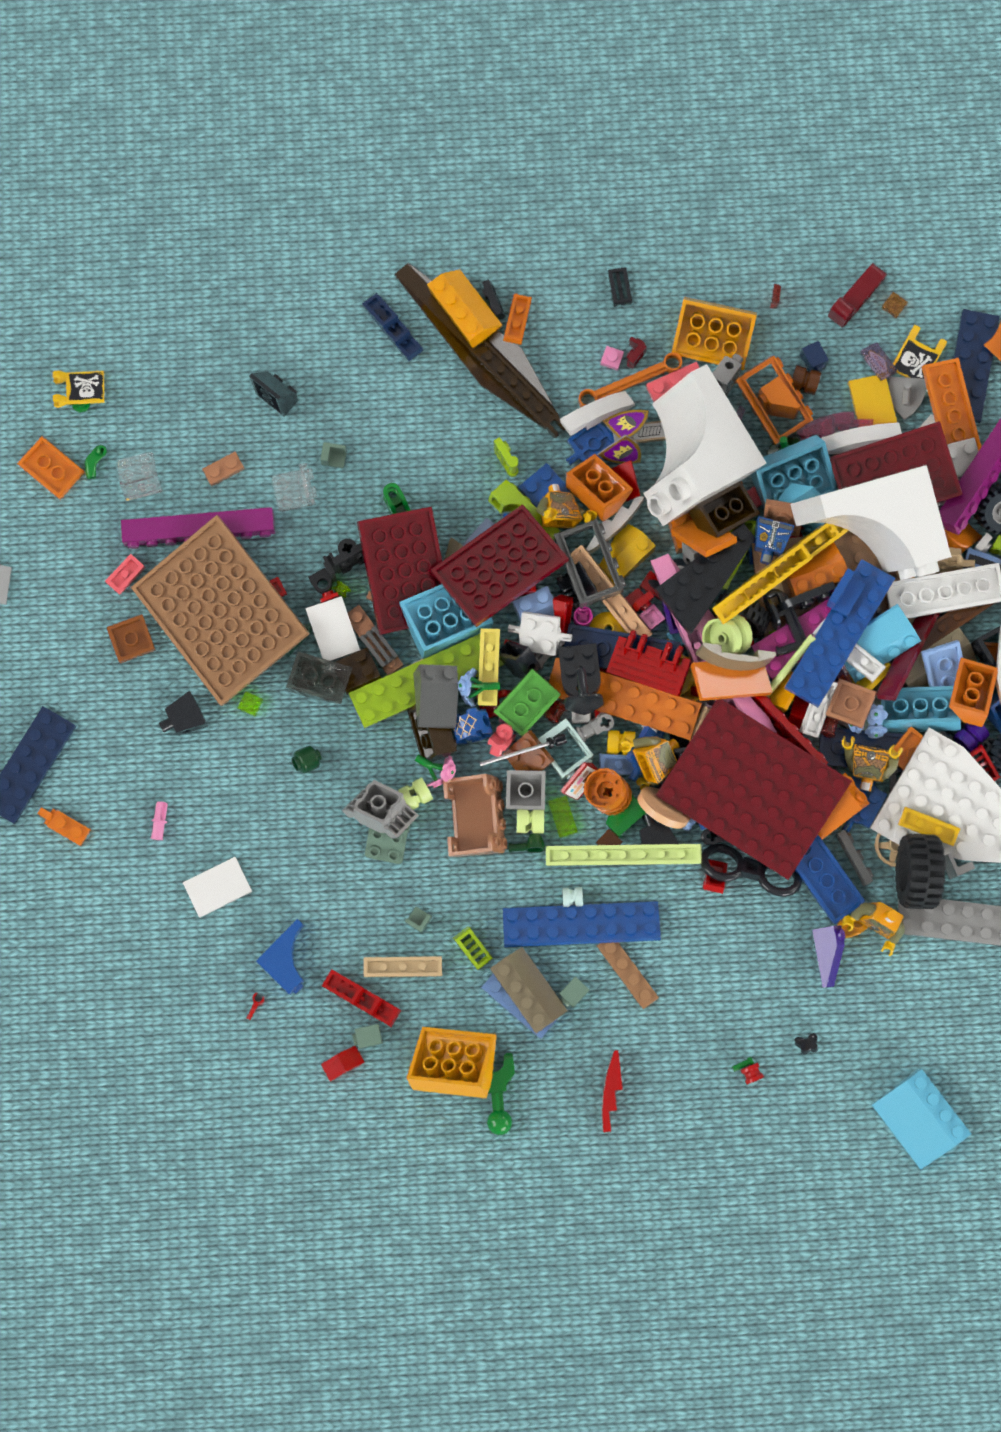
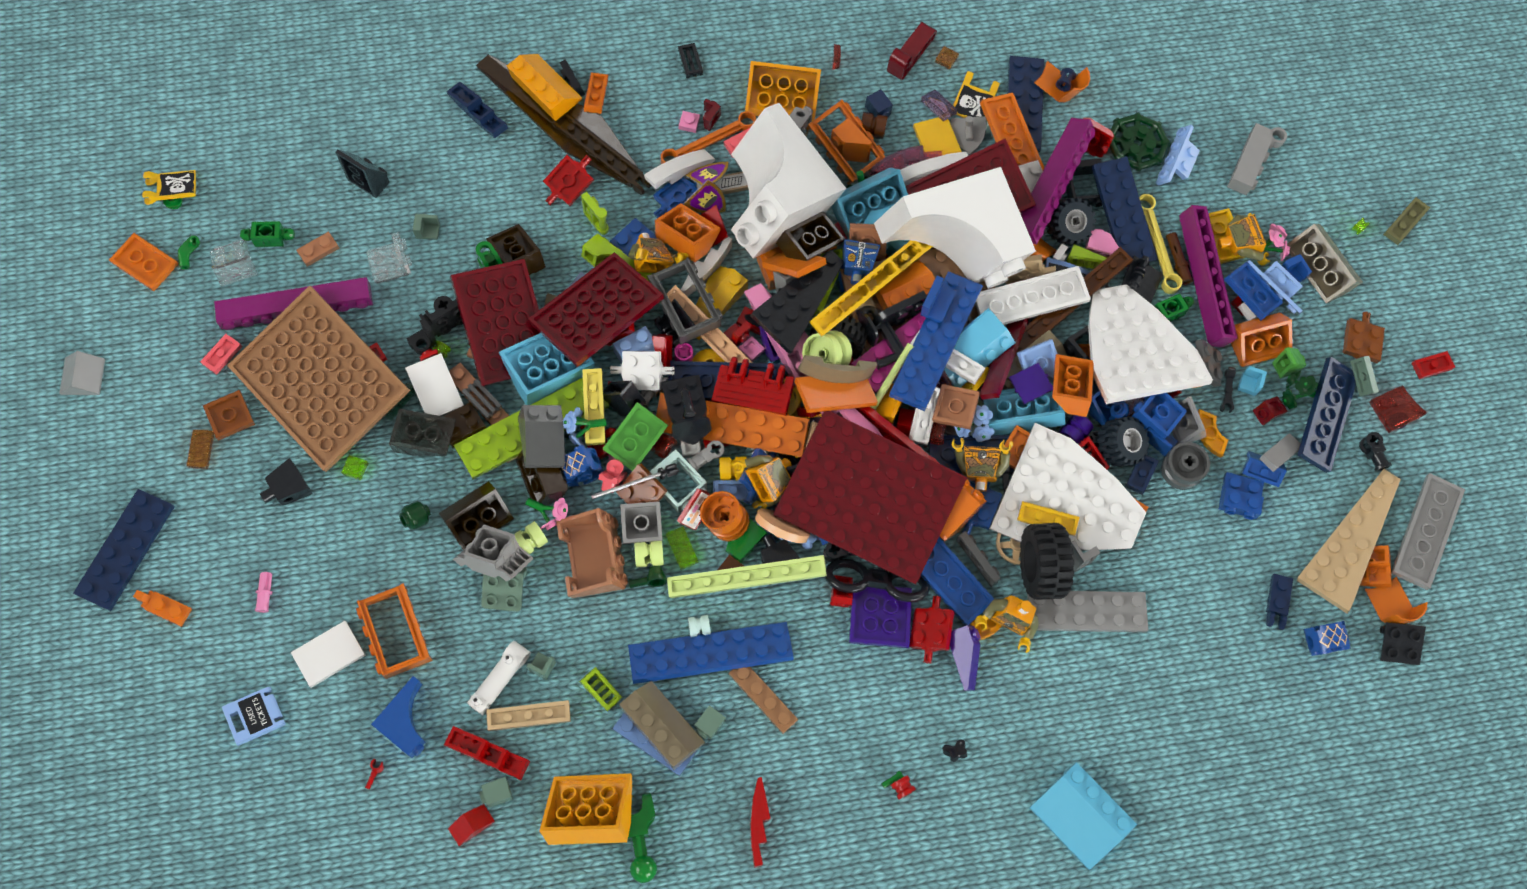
camera: 15 degrees left, 10 degrees down
(102, 670) = (200, 449): none -> clear orange tile
(149, 939) = (256, 713): none -> container
(166, 443) = (260, 229): none -> green piece
(262, 886) = (413, 624): none -> orange window
(365, 763) = (473, 511): none -> dark brown slope
(377, 927) = (512, 660): none -> white piece
(422, 488) = (515, 245): none -> dark brown slope
(481, 416) = (568, 180): none -> red plate
(749, 908) = (880, 618): none -> dark purple plate
(799, 924) = (931, 629): none -> red plate
(931, 685) = (1031, 383): none -> dark purple piece

